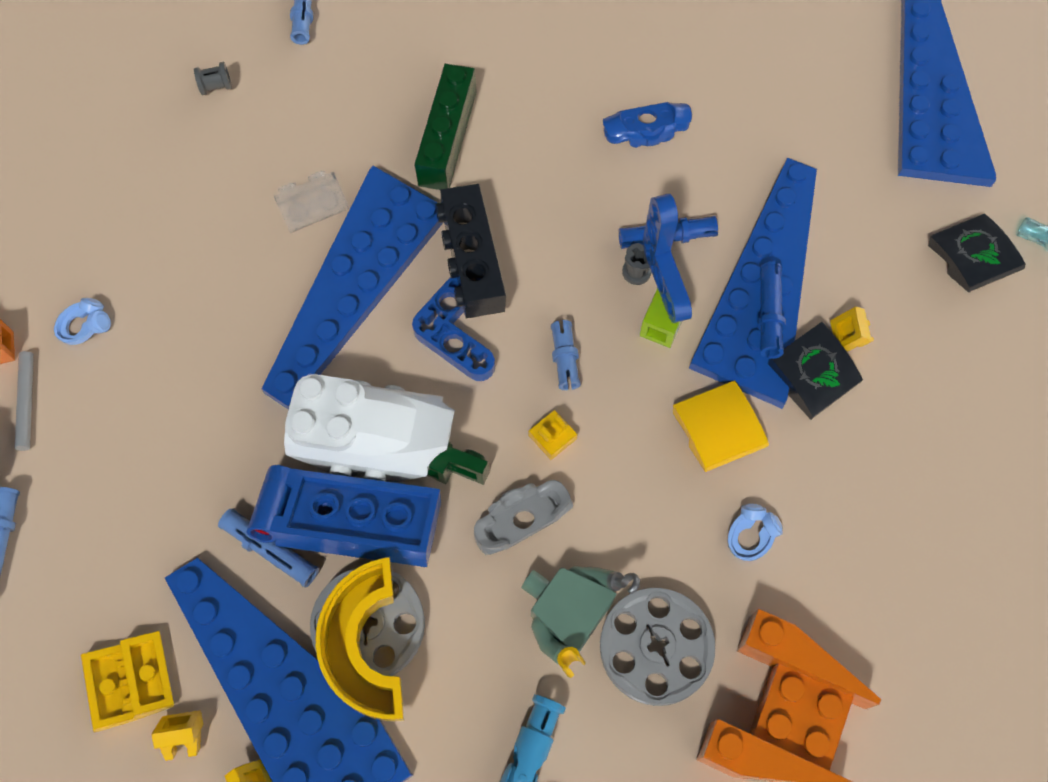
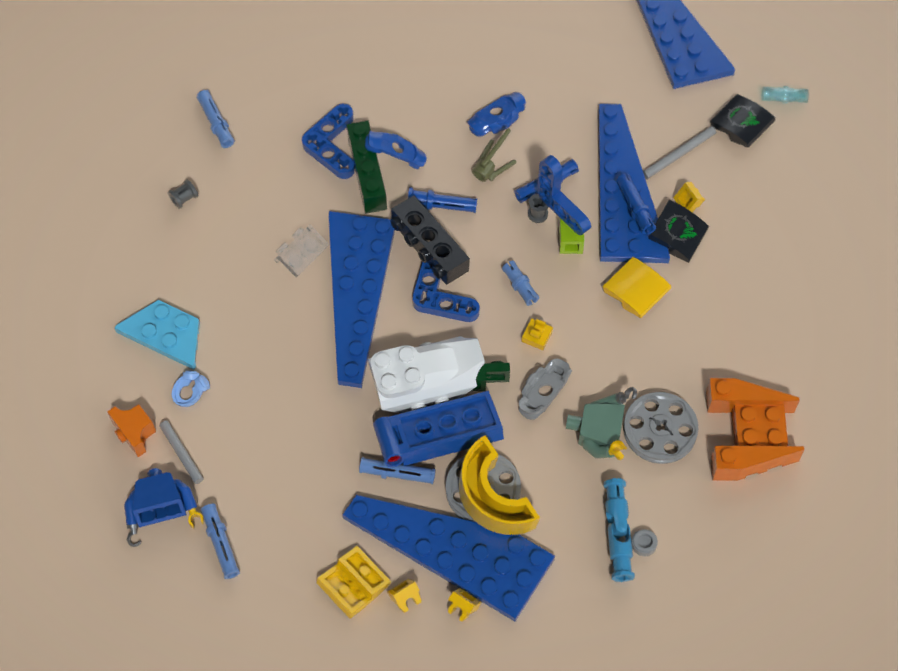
camera: 25 degrees left, 5 degrees down
(97, 238) = (164, 331): none -> medium azure wing
(416, 75) = (324, 139): none -> blue beam
(476, 100) = (382, 142): none -> blue piece
(505, 200) = (431, 200): none -> blue pin
(596, 184) = (485, 167): none -> olive plant
(771, 529) = (695, 336): light blue piece -> none
(867, 262) = (679, 152): none -> light grey bar

